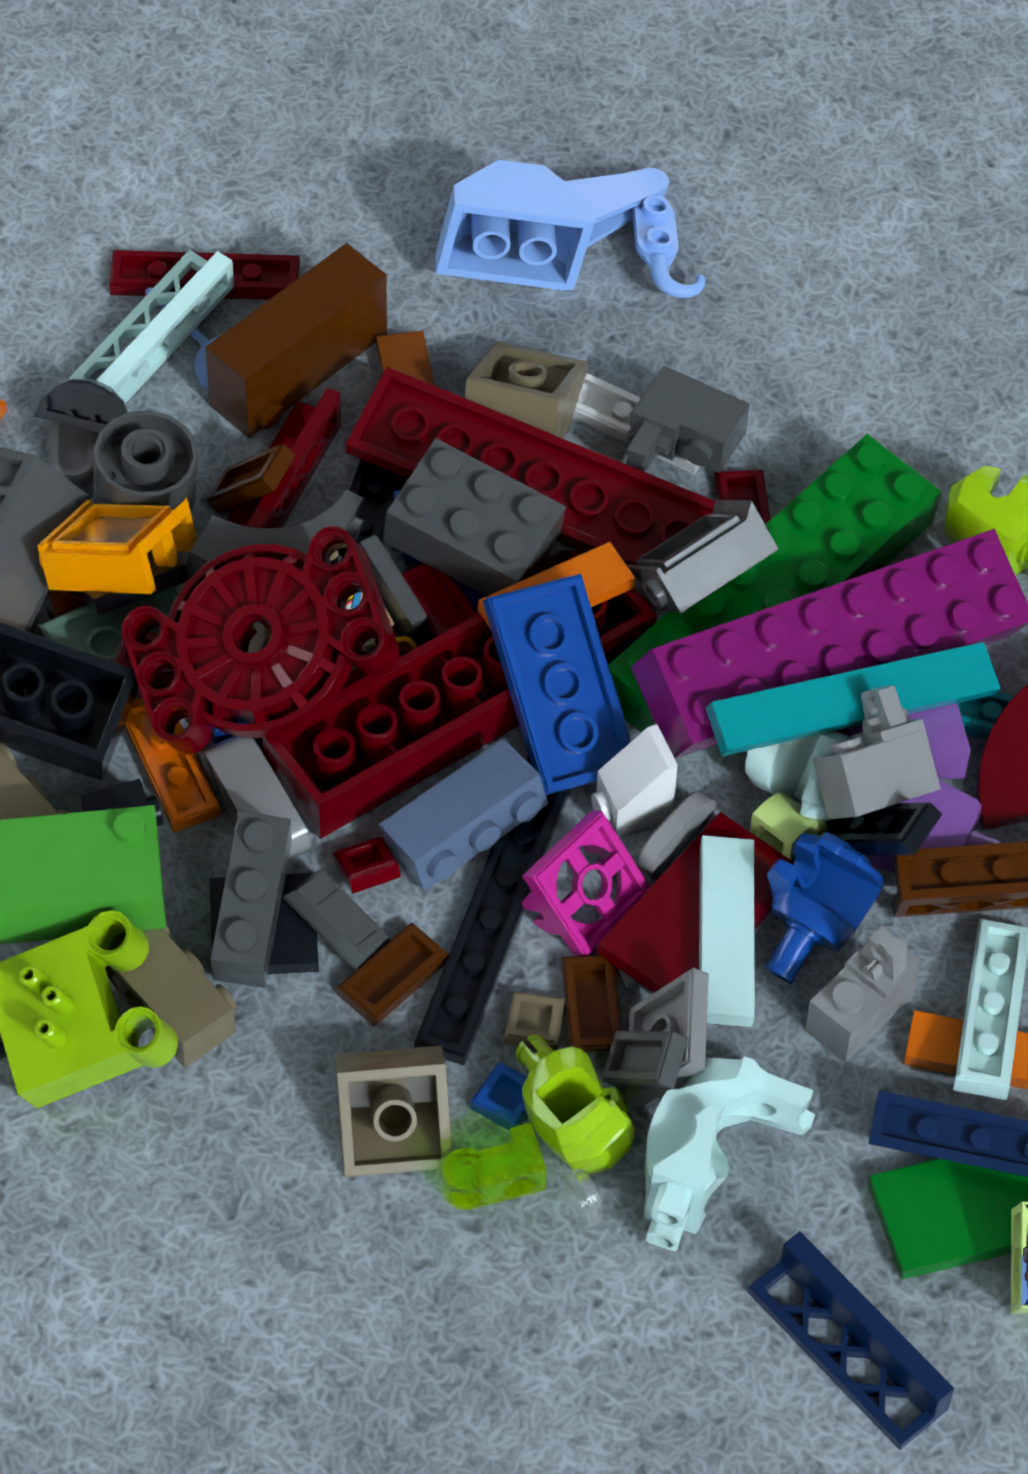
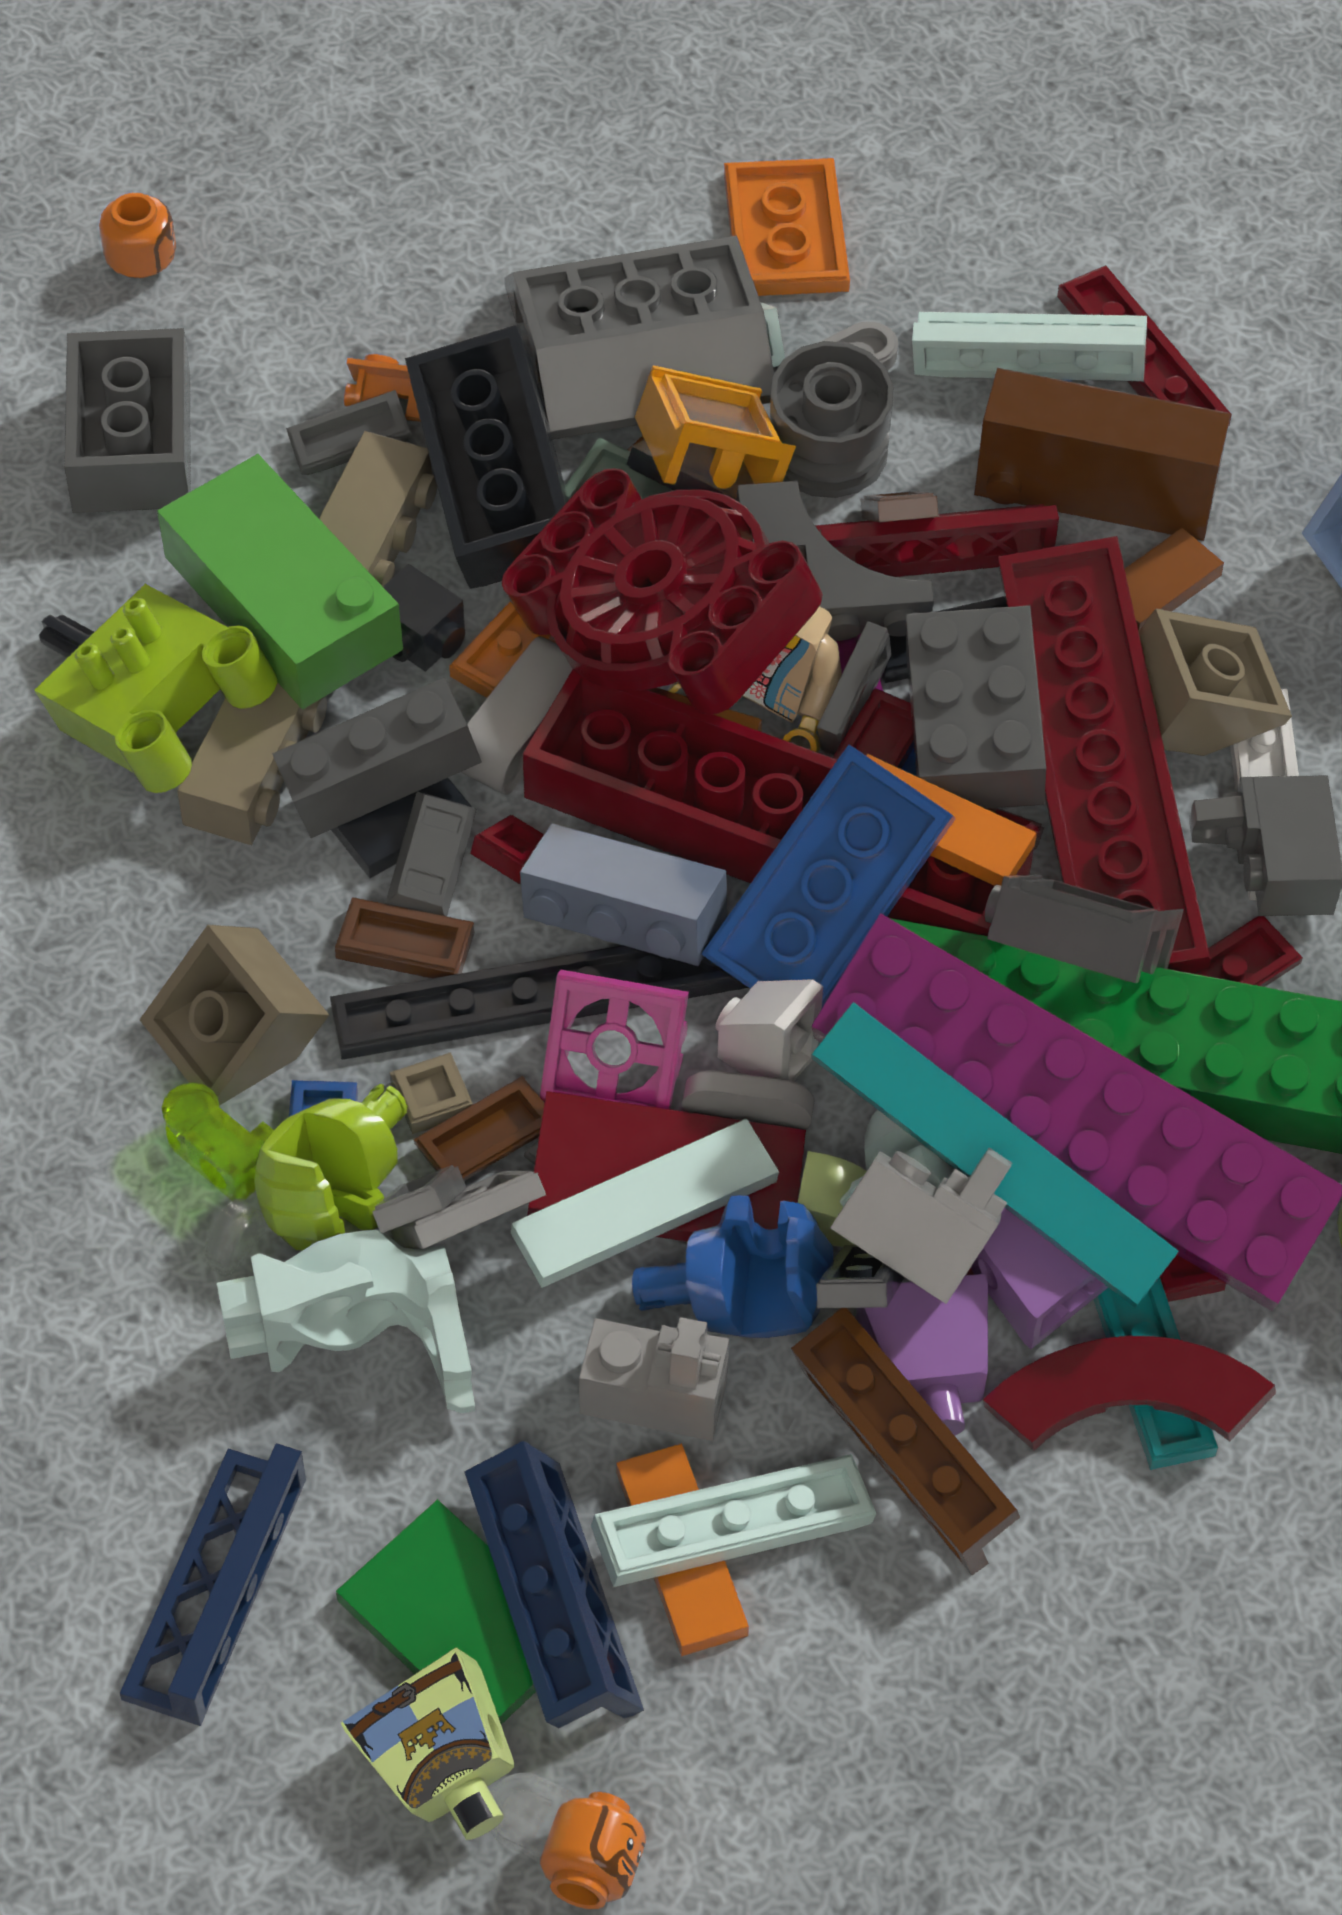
camera: 60 degrees right, 0 degrees up
(81, 404) = (882, 329): black tile -> none

